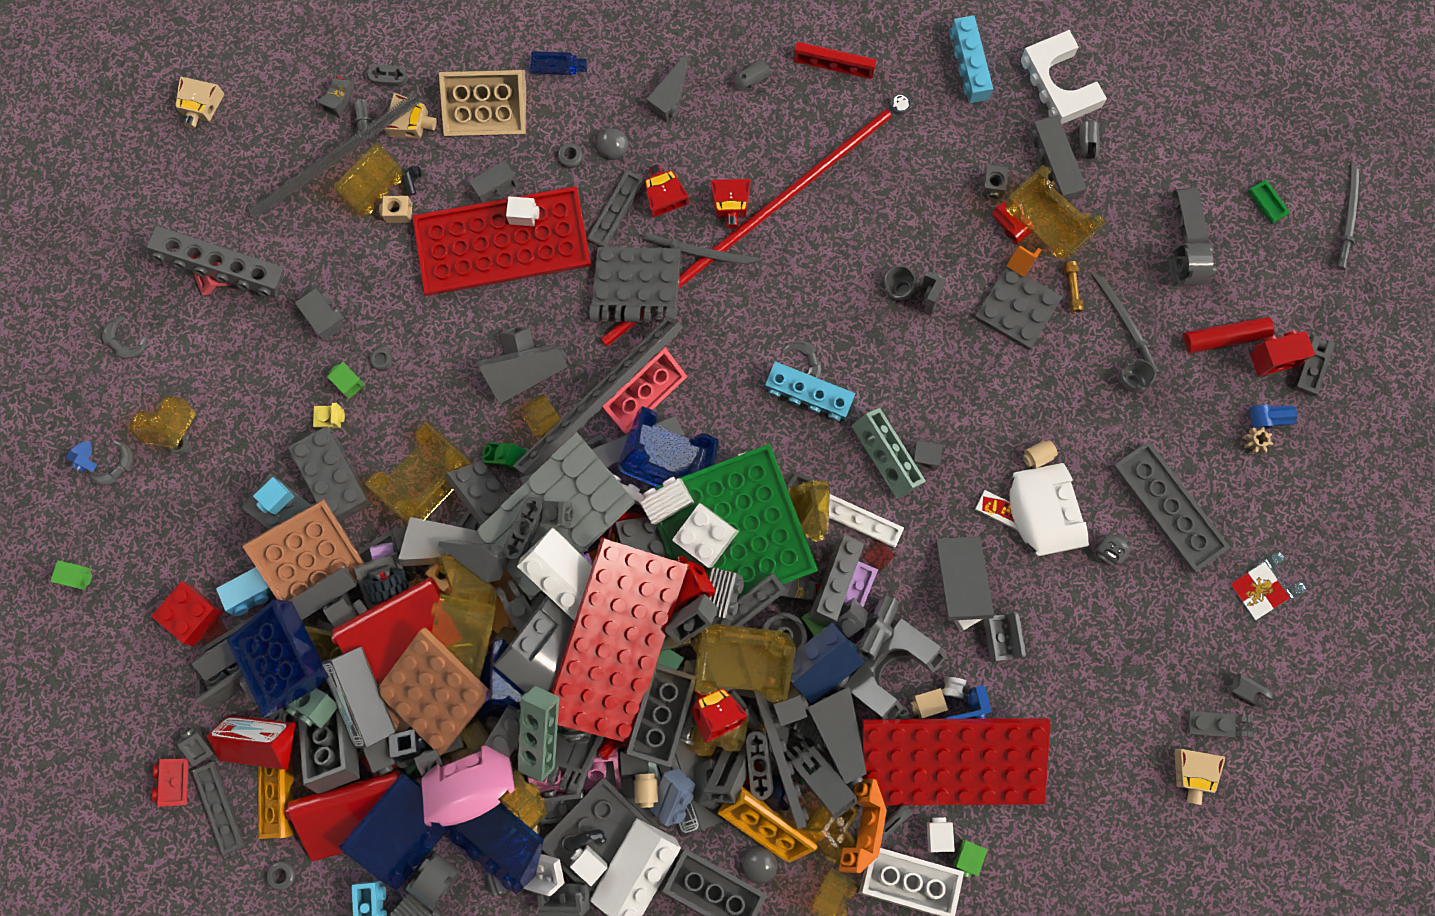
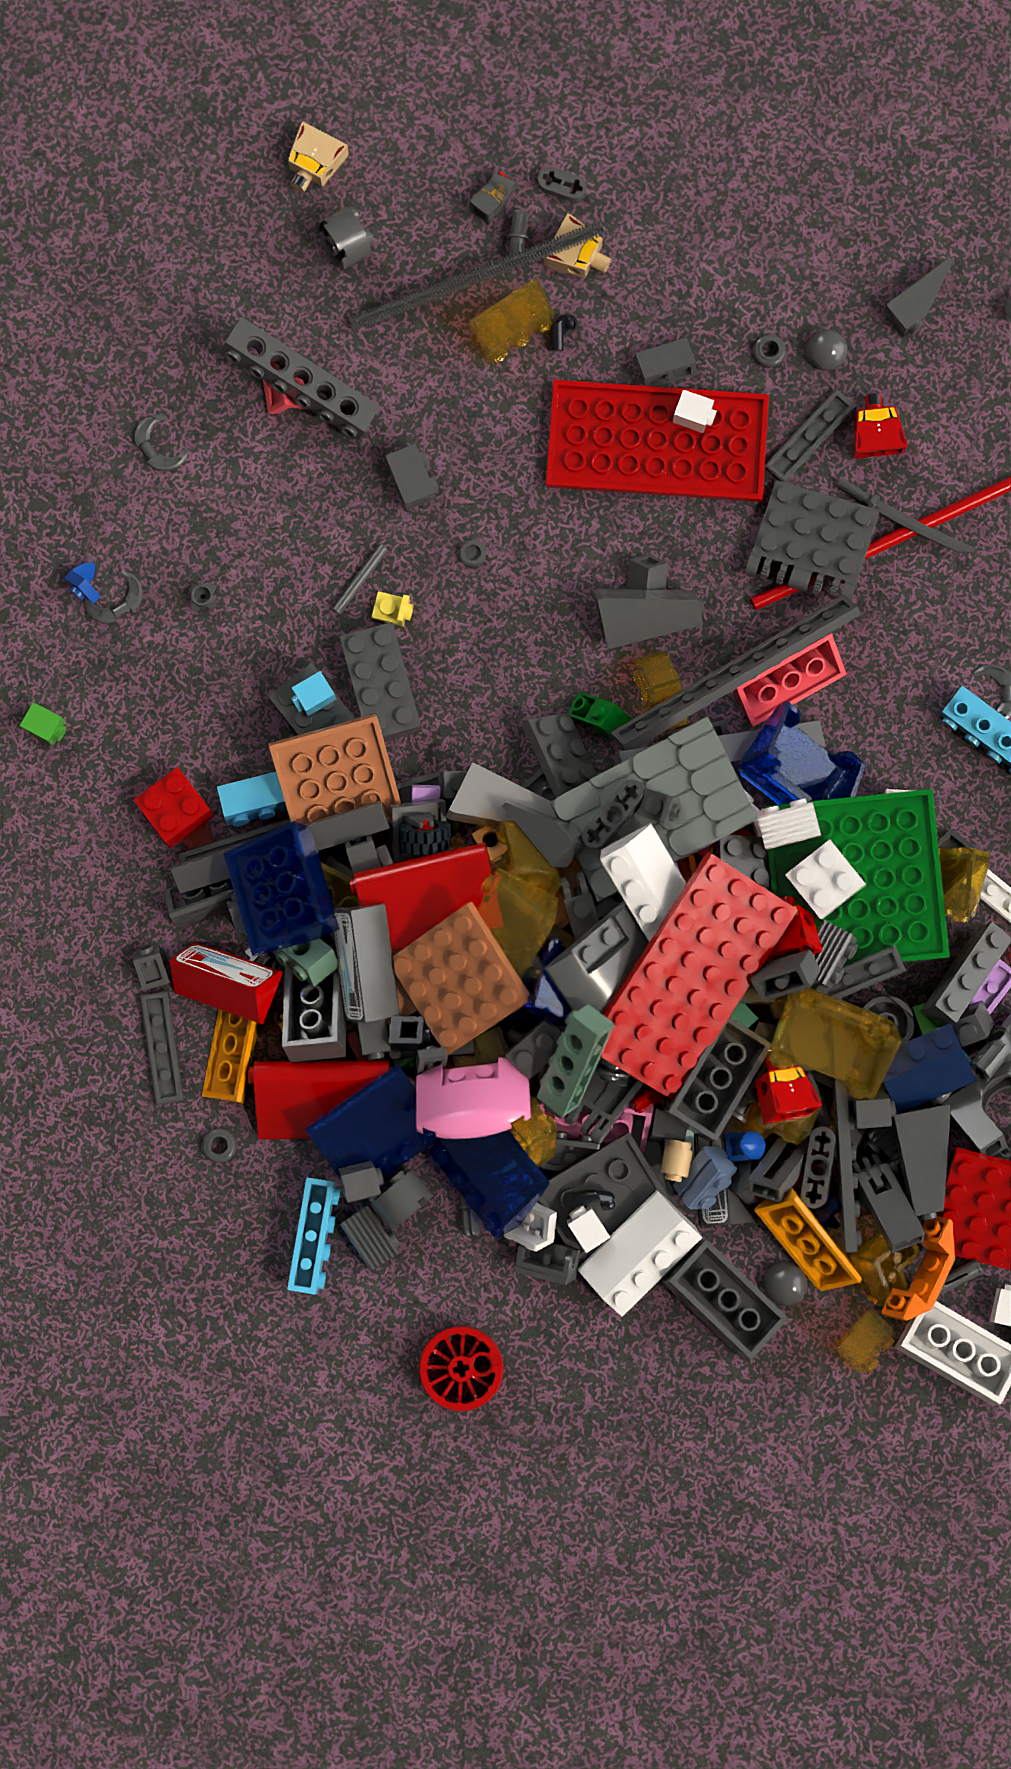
camera: 15 degrees right, 5 degrees up
(165, 425) = (193, 570): clear yellow brick -> none
(171, 782) = (112, 1002): bracket -> none
(230, 152) = (345, 238): none -> dark grey brick
(298, 400) = (359, 579): none -> dark grey bar
(345, 380) = (424, 568): bright green brick -> none
(393, 877) = (360, 1181): none -> dark grey brick
(403, 215) = (543, 374): tan brick -> none
(419, 480) = (491, 714): clear yellow windscreen -> none
(483, 102) = (676, 253): tan slope -> none
(556, 63) = (781, 224): clear blue hinge -> none
(697, 763) = (744, 1146): none -> blue plate
(731, 199) = (958, 462): red torso -> none
(801, 590) = (921, 975): dark grey leg -> none

